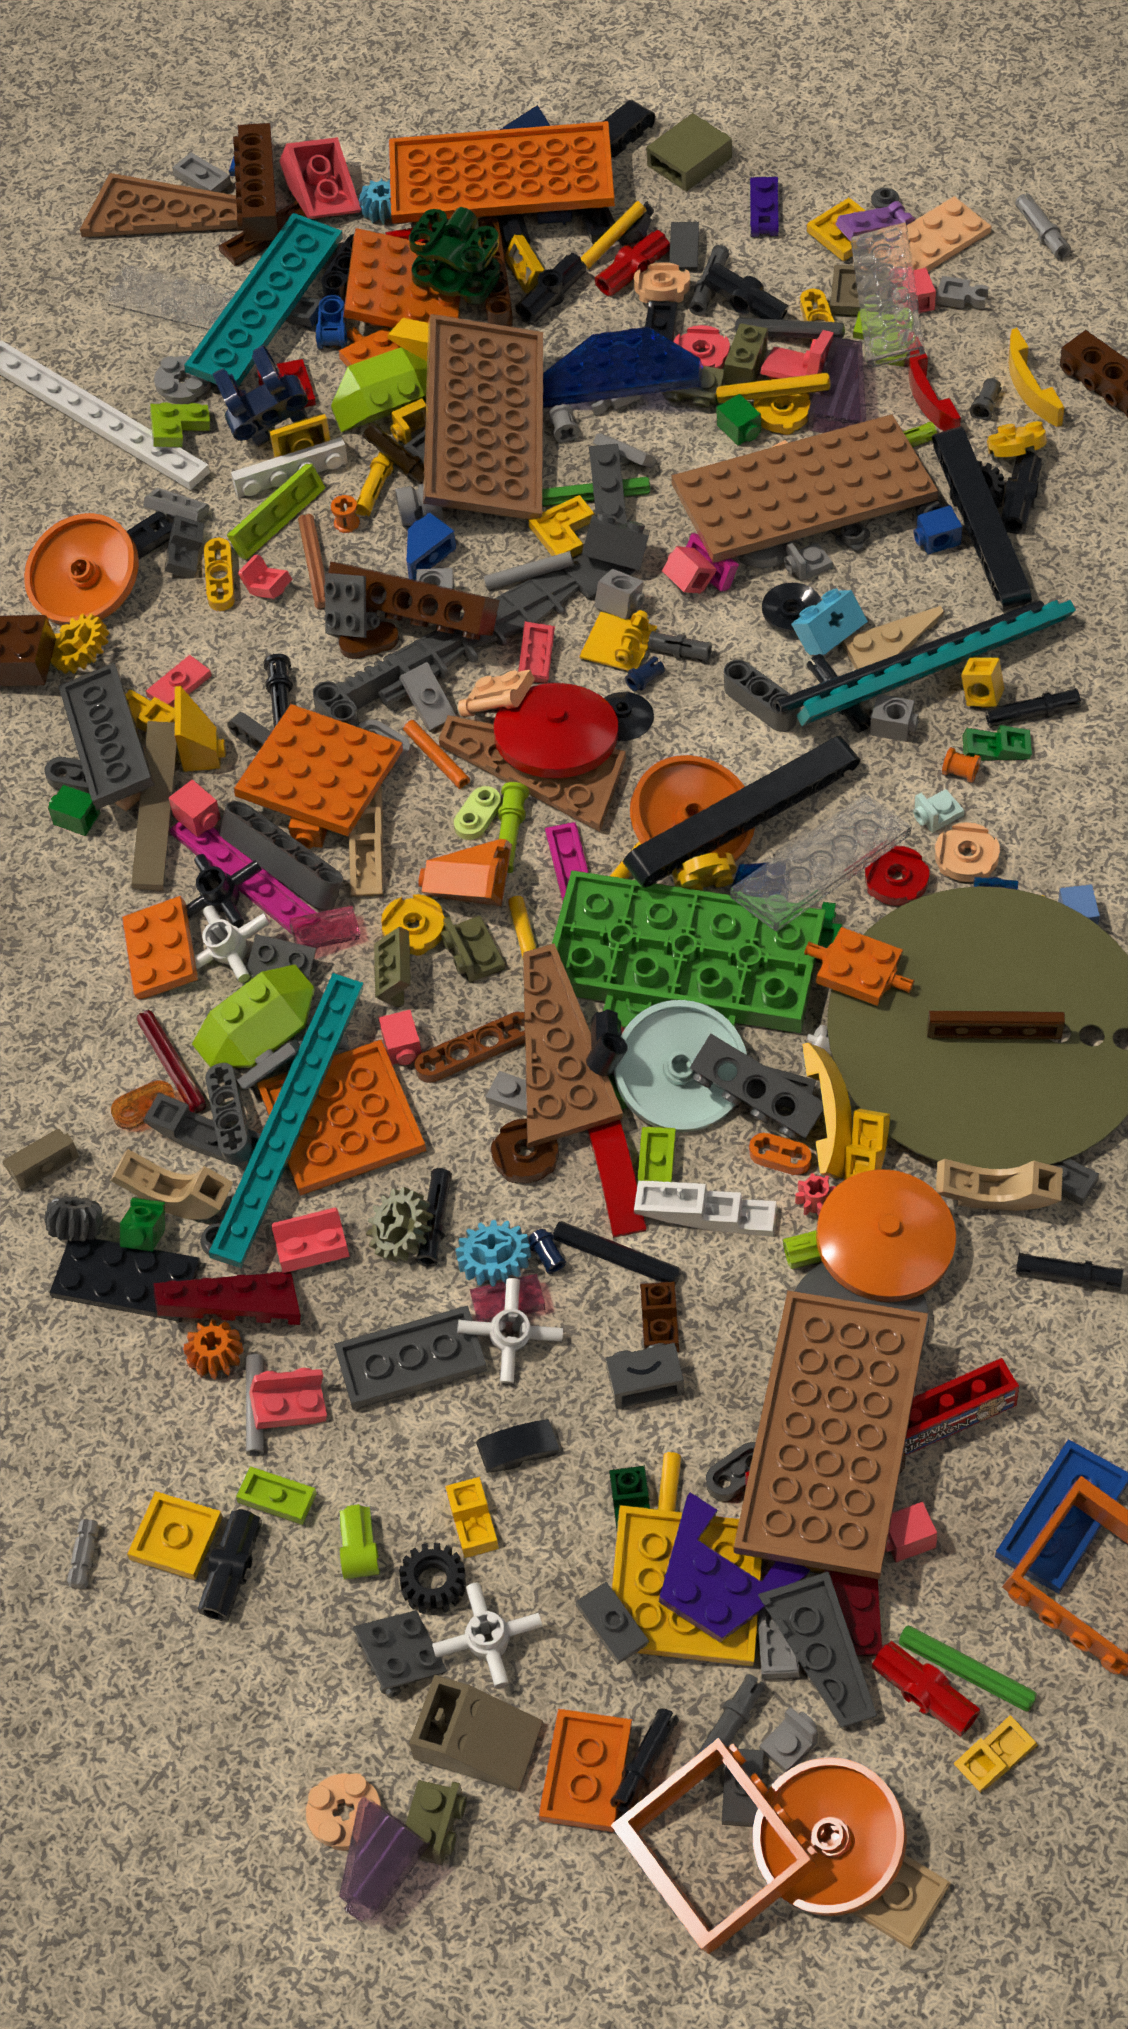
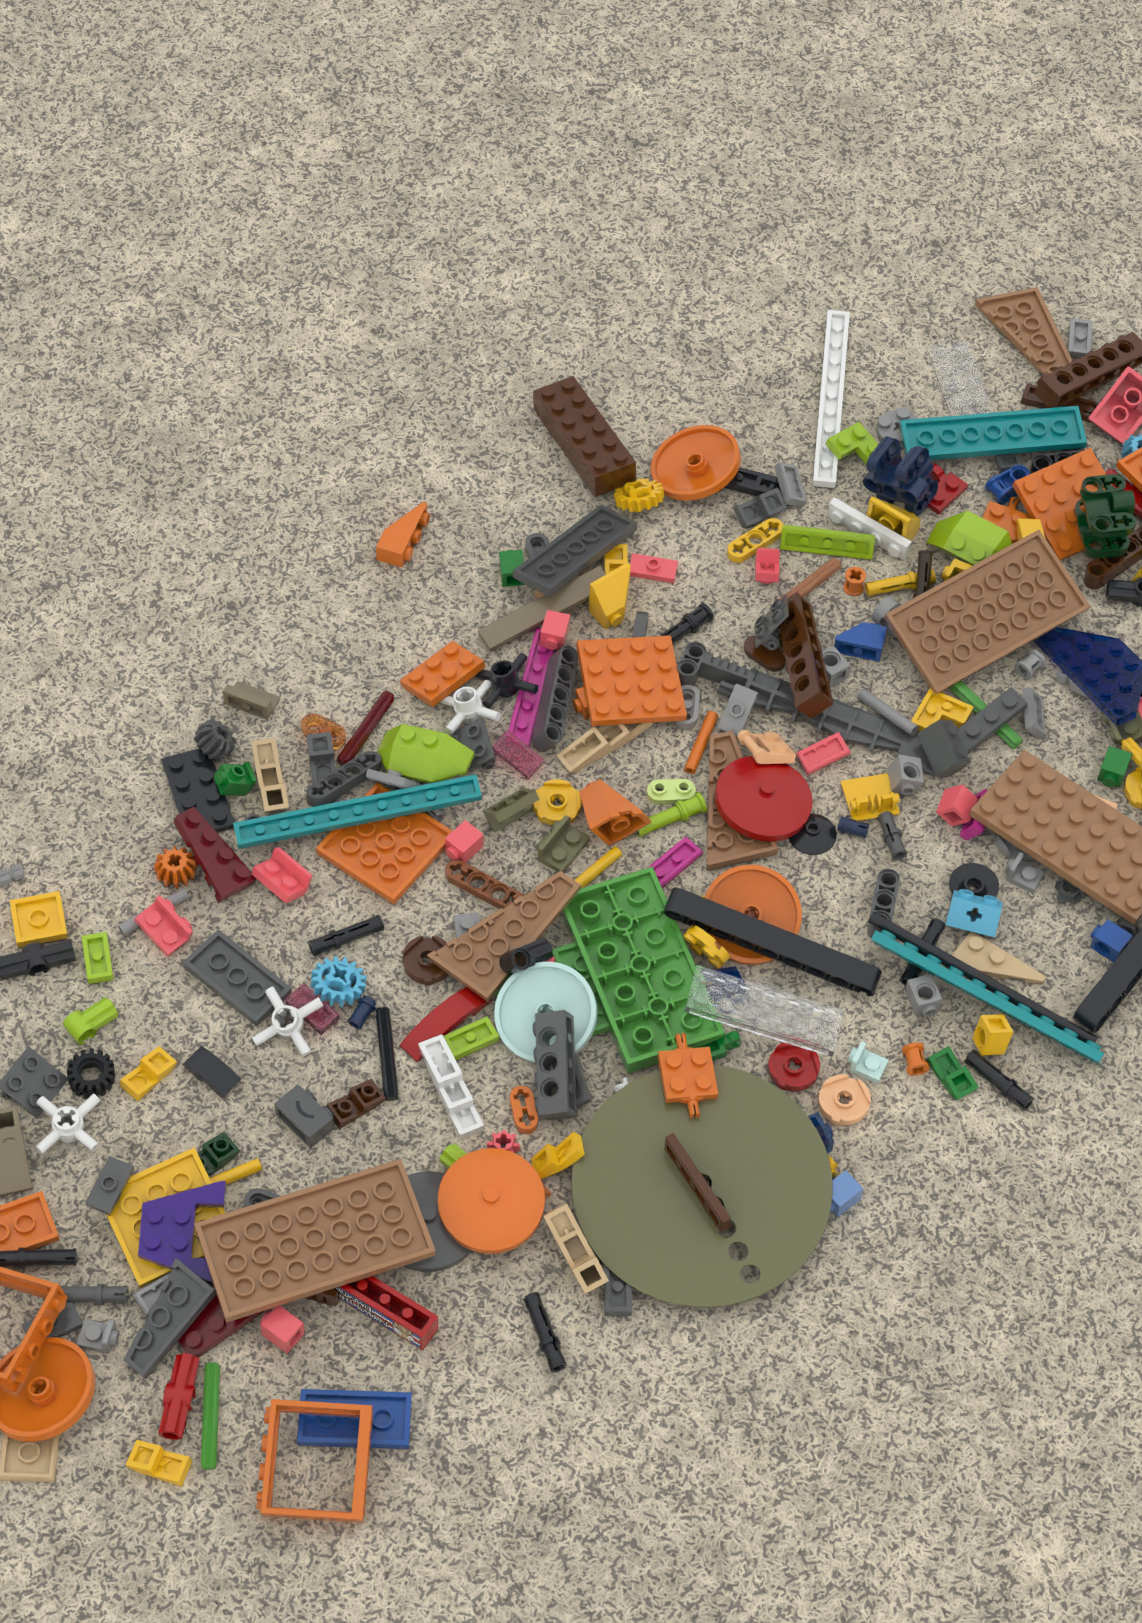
camera: 50 degrees right, 0 degrees up
(399, 1224) = (323, 917): olive gear -> none
(836, 1110) = (571, 1118): yellow slope -> none

